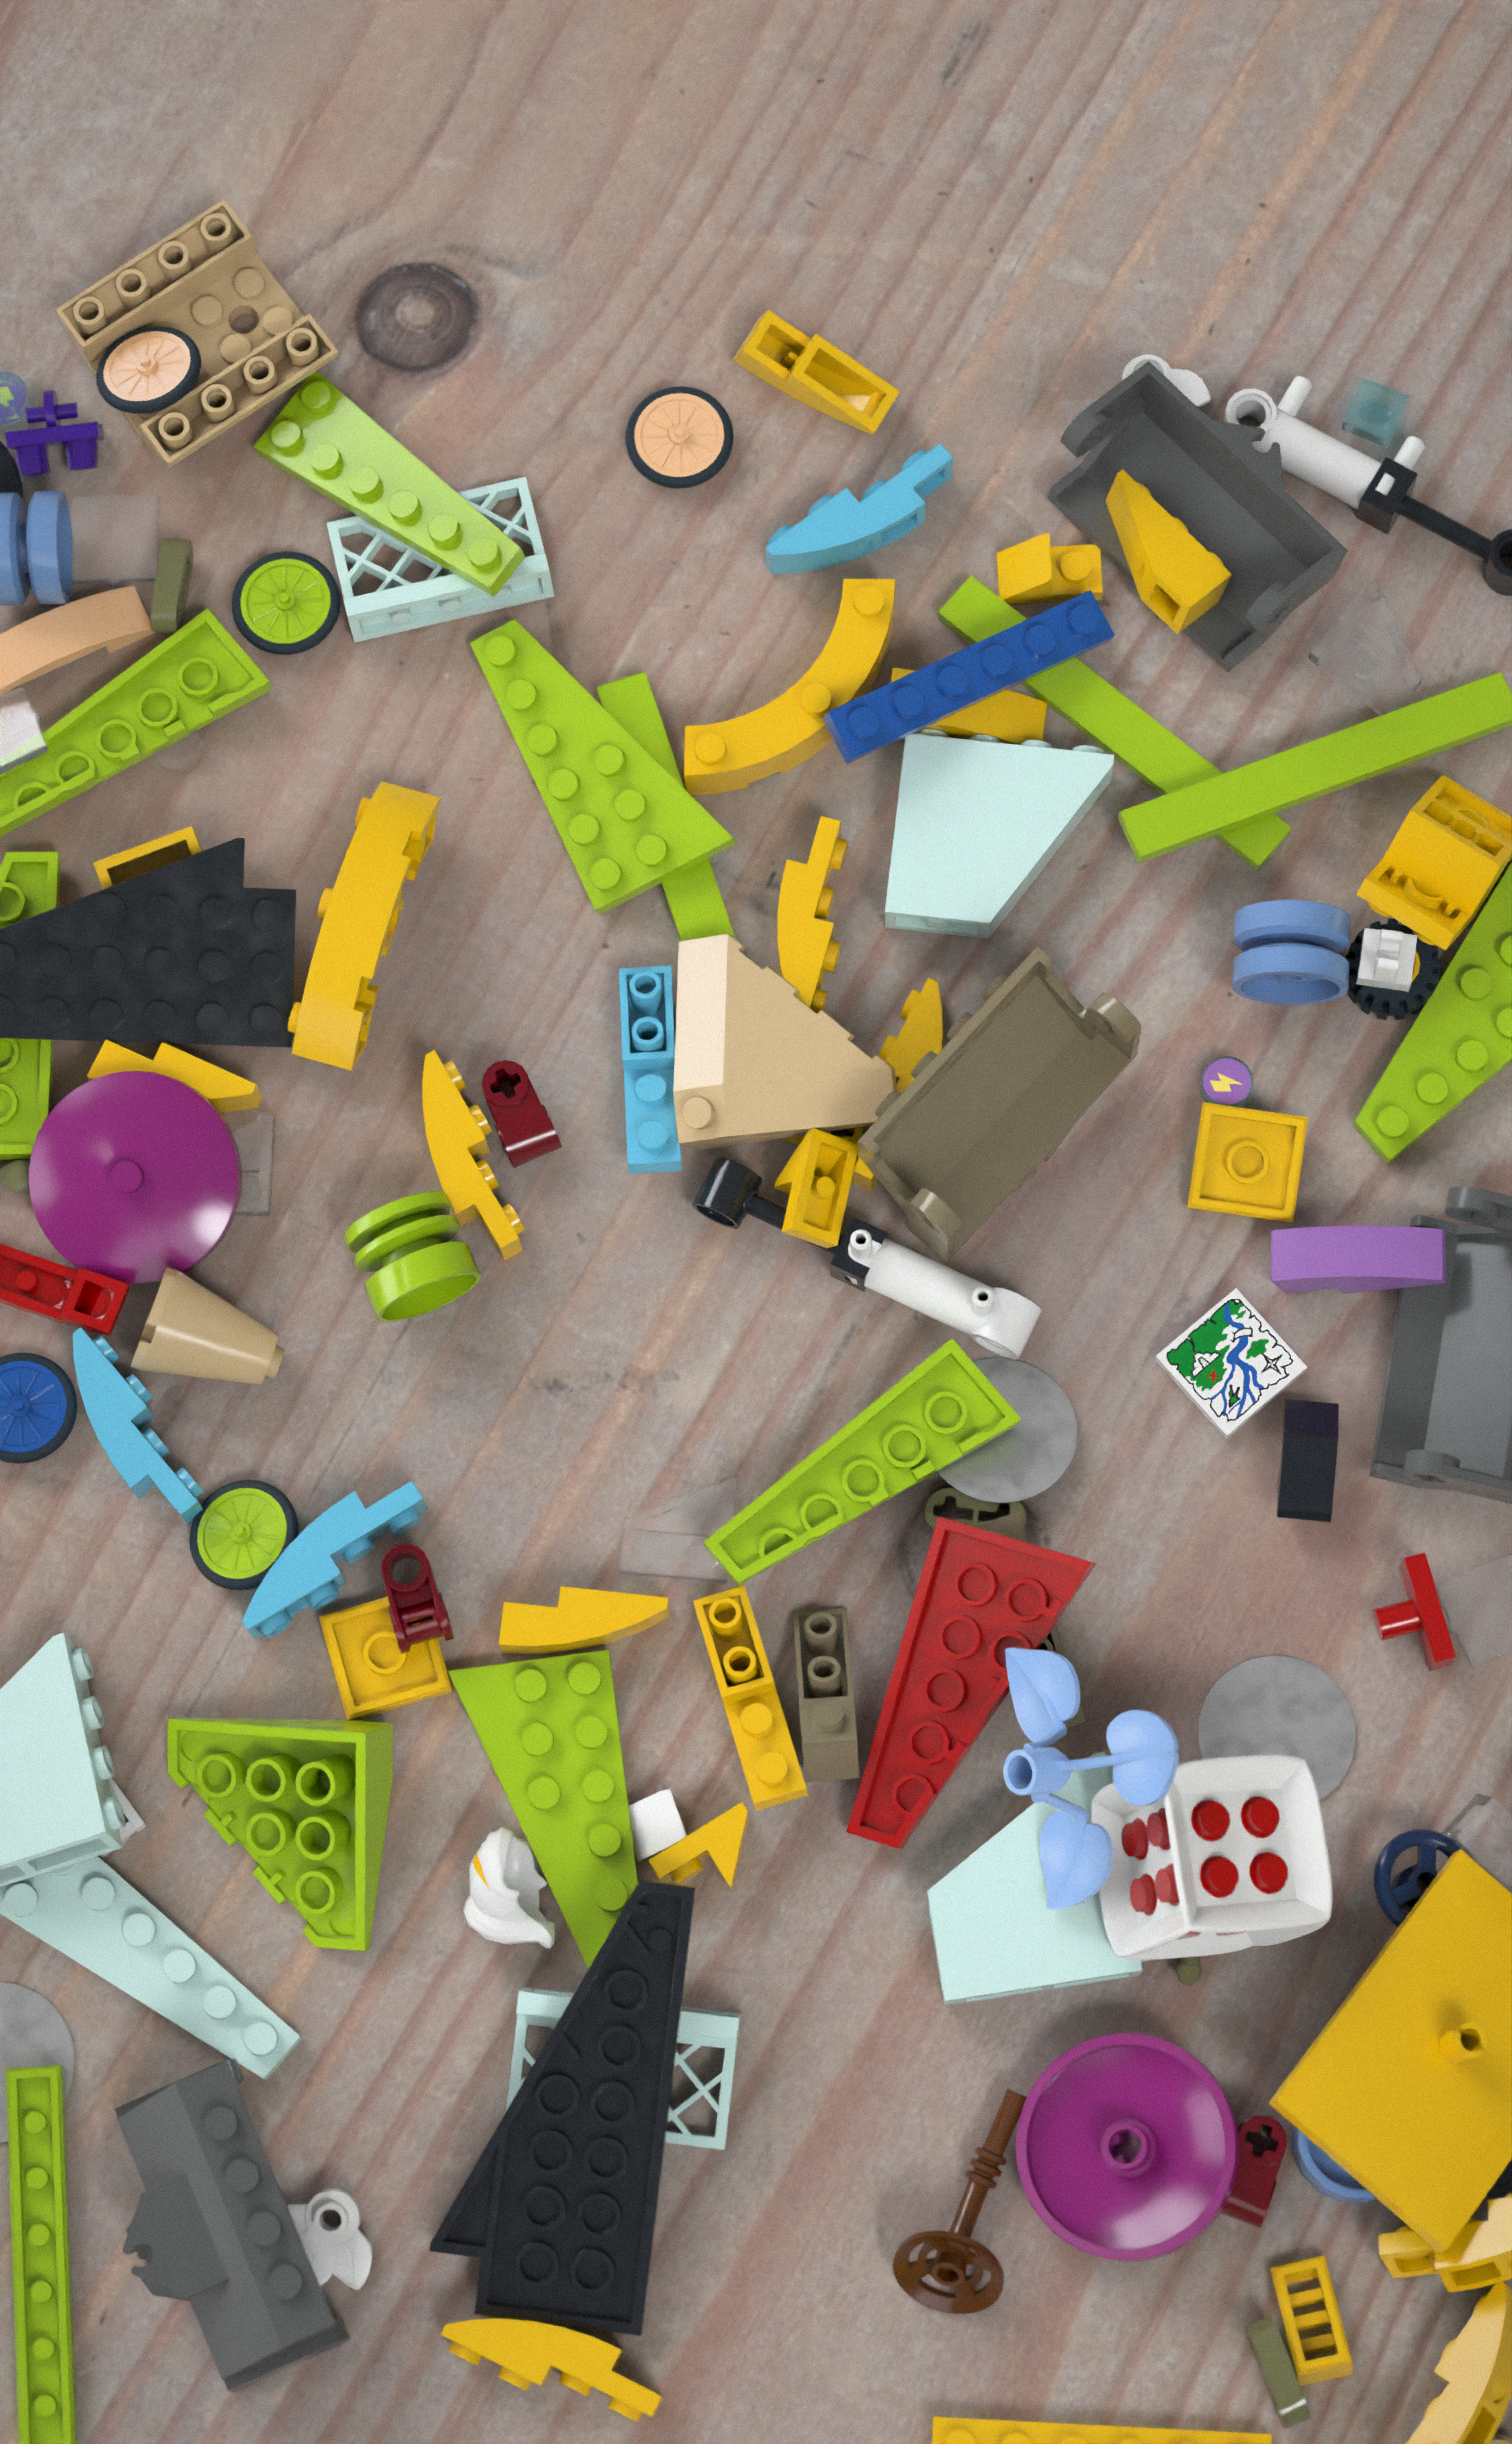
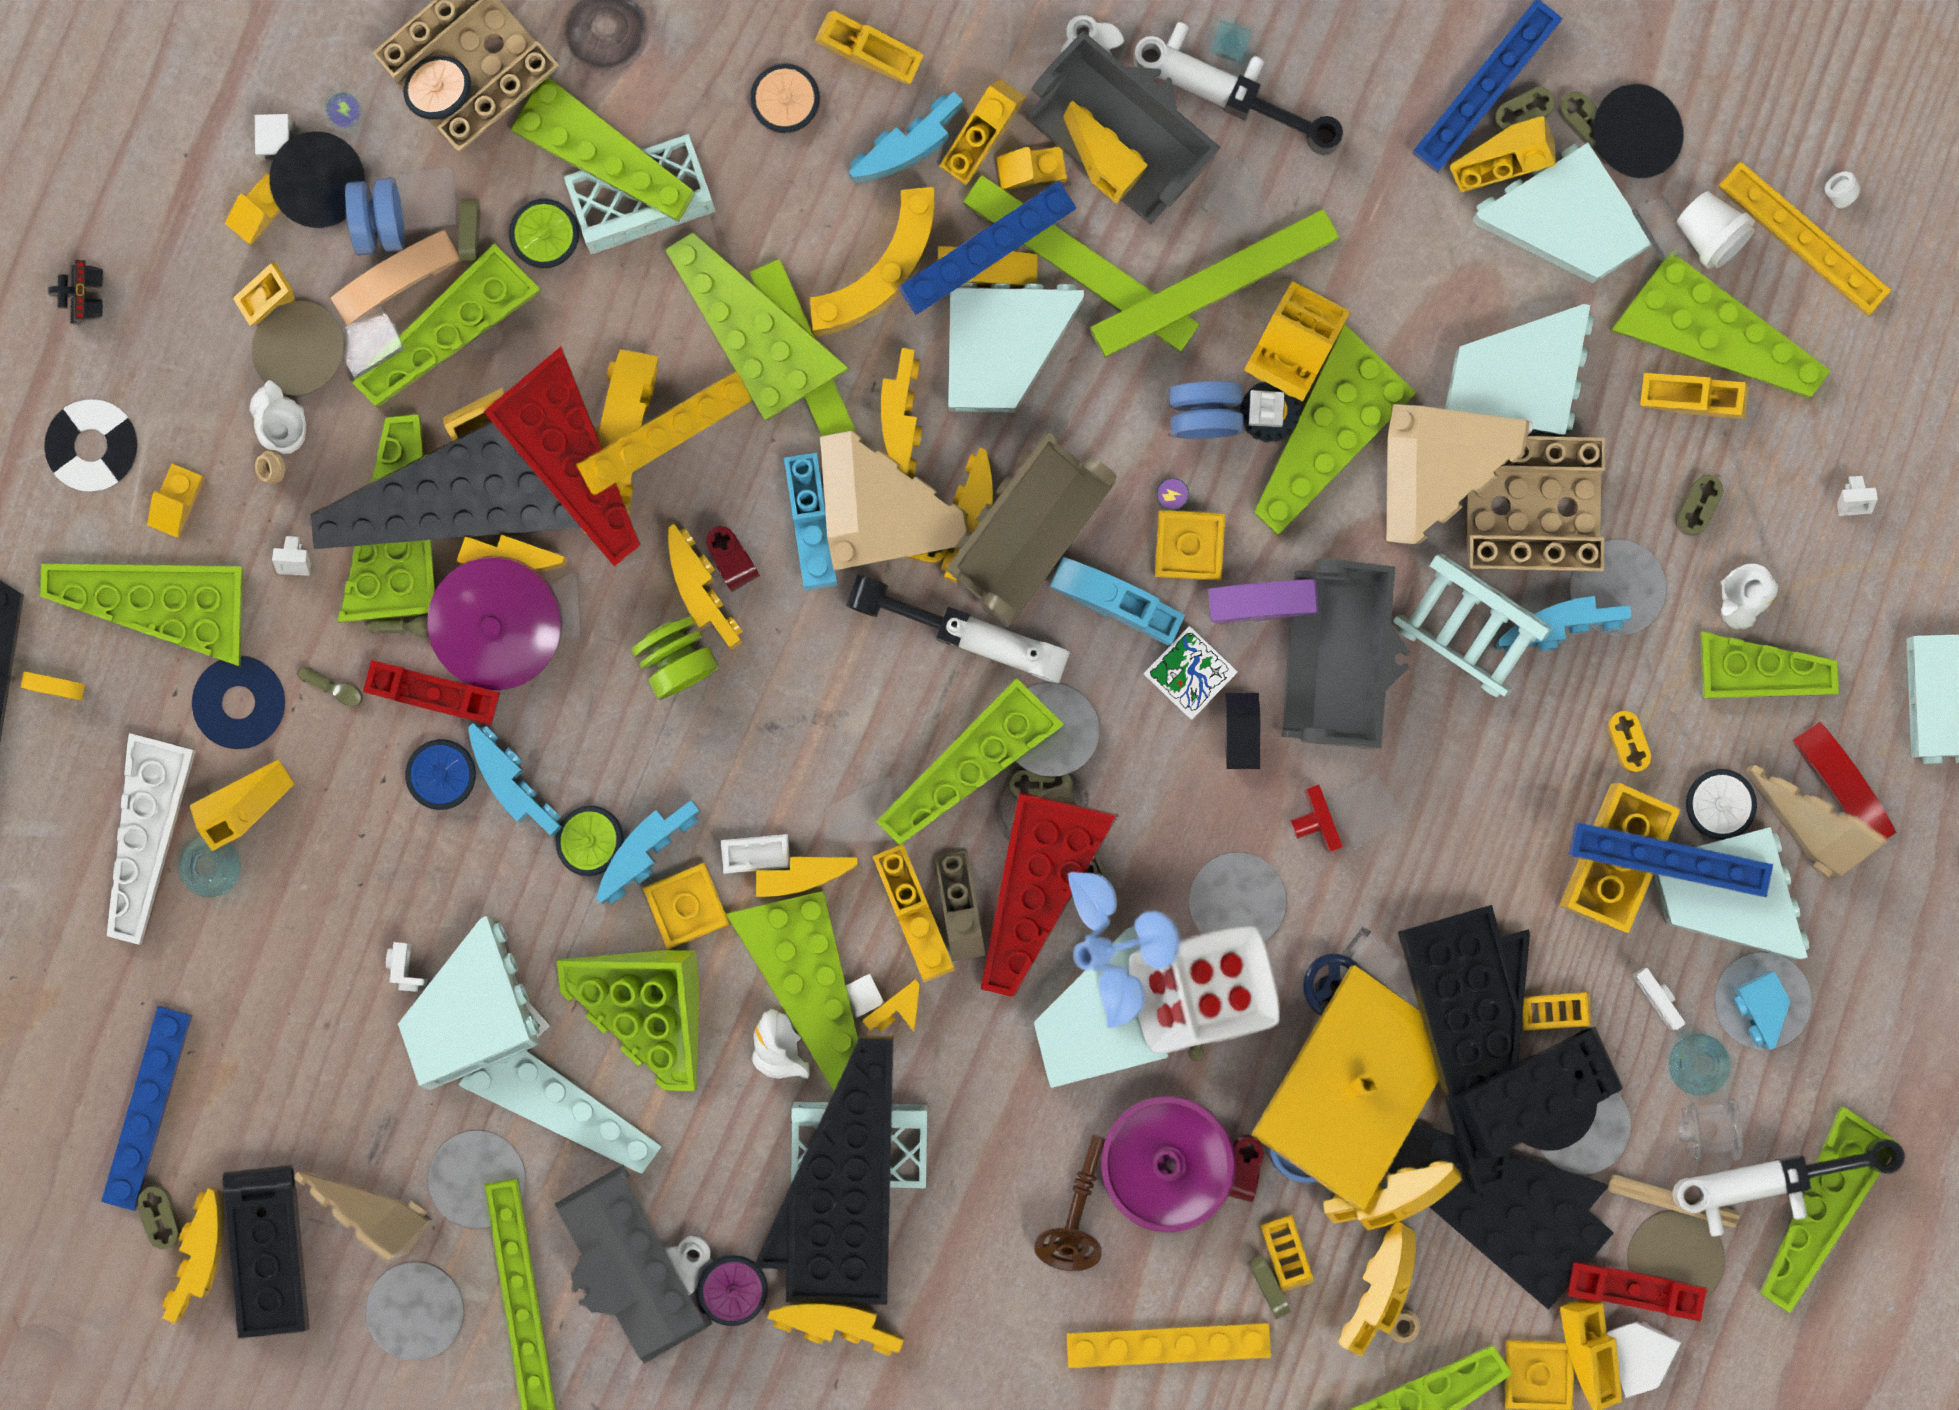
camera: 10 degrees left, 10 degrees up
(32, 444) = (367, 141): dark purple hips -> none
(204, 1336) = (549, 720): tan cone -> none
(266, 896) = (553, 433): none -> red wing
(388, 2287) = (732, 1290): none -> magenta wheel
(414, 1601) = (701, 875): dark red piece -> none
(433, 905) = (664, 432): none -> yellow plate
(493, 1578) = (755, 853): none -> white plate
(818, 1187) = (924, 588): yellow slope -> none
(979, 509) = (983, 130): none -> yellow slope
(1125, 1232) = (1116, 599): none -> medium azure slope

